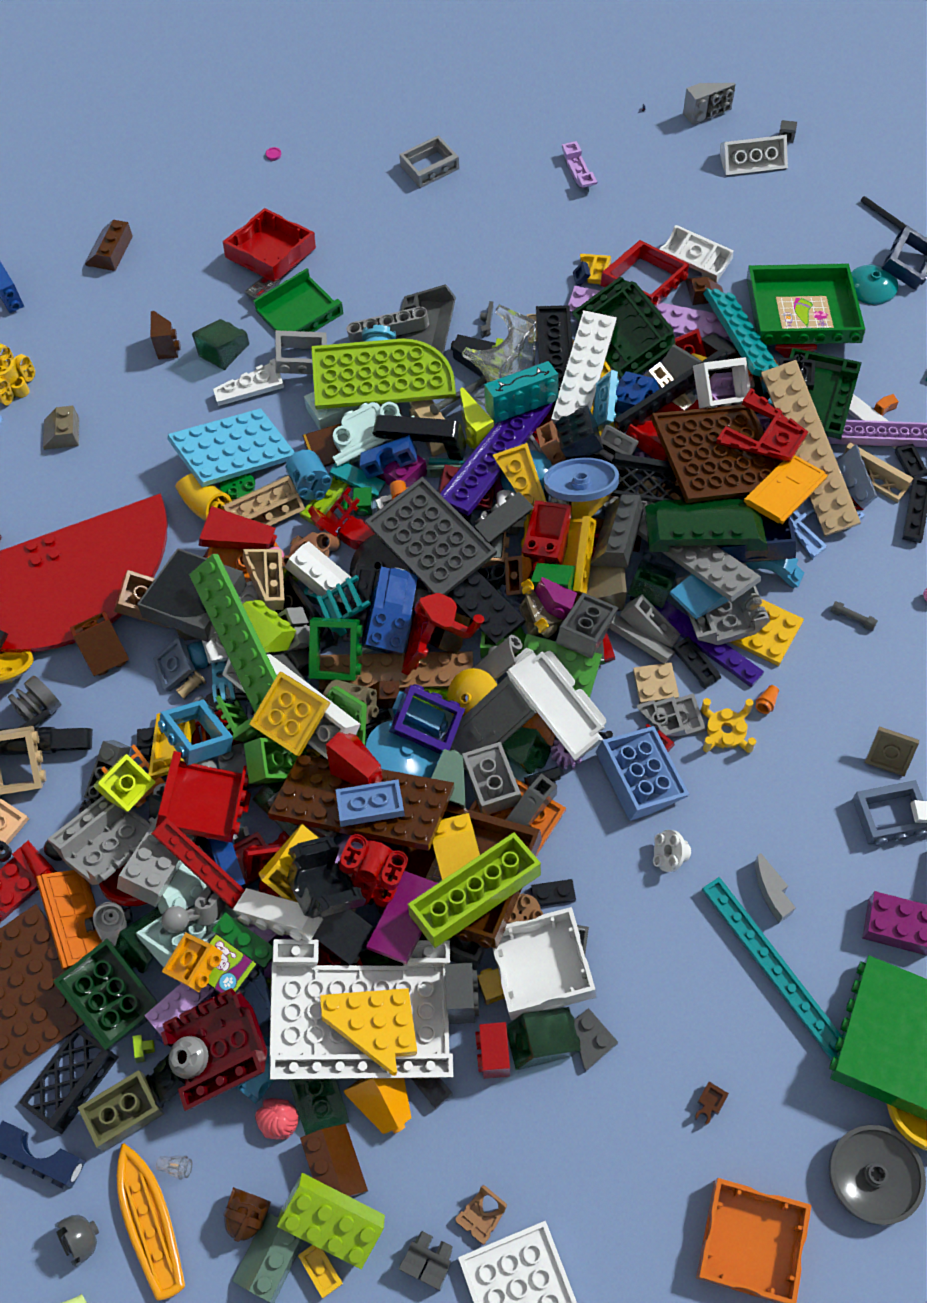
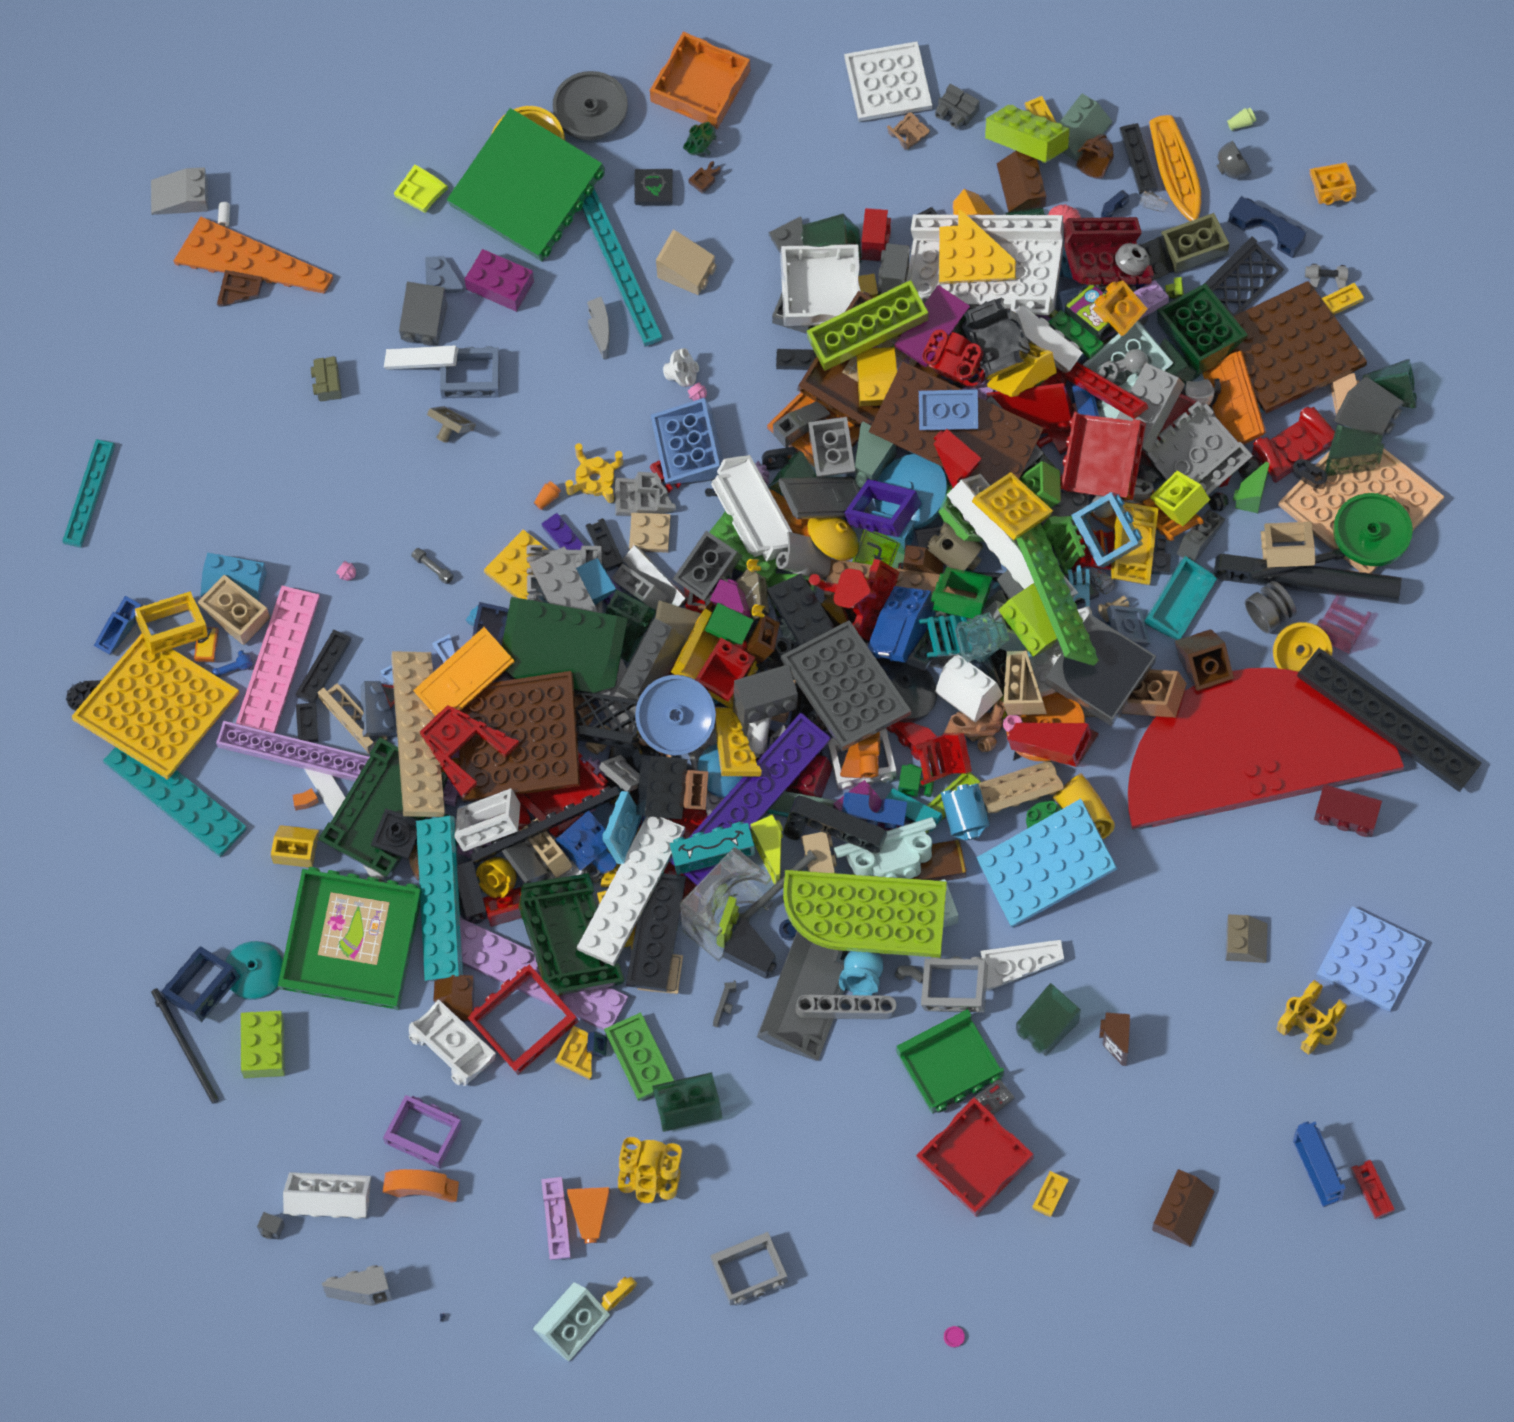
camera: 170 degrees left, 5 degrees up
(49, 818) = (1251, 490): none -> bright green slope
(126, 705) = (1180, 599): none -> teal slope
(195, 1227) = (1138, 158): none -> black plate
(210, 239) = (1050, 1194): none -> yellow plate
(215, 1157) = (1120, 200): none -> dark blue plate
(307, 596) = (980, 637): none -> clear light blue piece
(499, 244) = (687, 1102): none -> clear green slope
(517, 192) = (649, 1169): none -> yellow piece
(520, 134) = (611, 1299): none -> yellow plate
(545, 273) = (638, 1055): none -> bright green plate
(551, 114) = (571, 1321): none -> light aqua slope
(558, 175) = (589, 1210): none -> orange slope
(647, 832) = (697, 392): none -> bright pink plate
(687, 160) = (420, 1182): none -> orange arch
(700, 190) = (413, 1149): none -> medium lavender window
(701, 977) = (685, 263): none -> tan slope
(730, 1151) = (700, 139): none -> dark green plate
(766, 1079) = (653, 186): none -> black slope
(843, 231) = (262, 1044): none -> lime brick
(879, 364) = (294, 846): none -> yellow slope

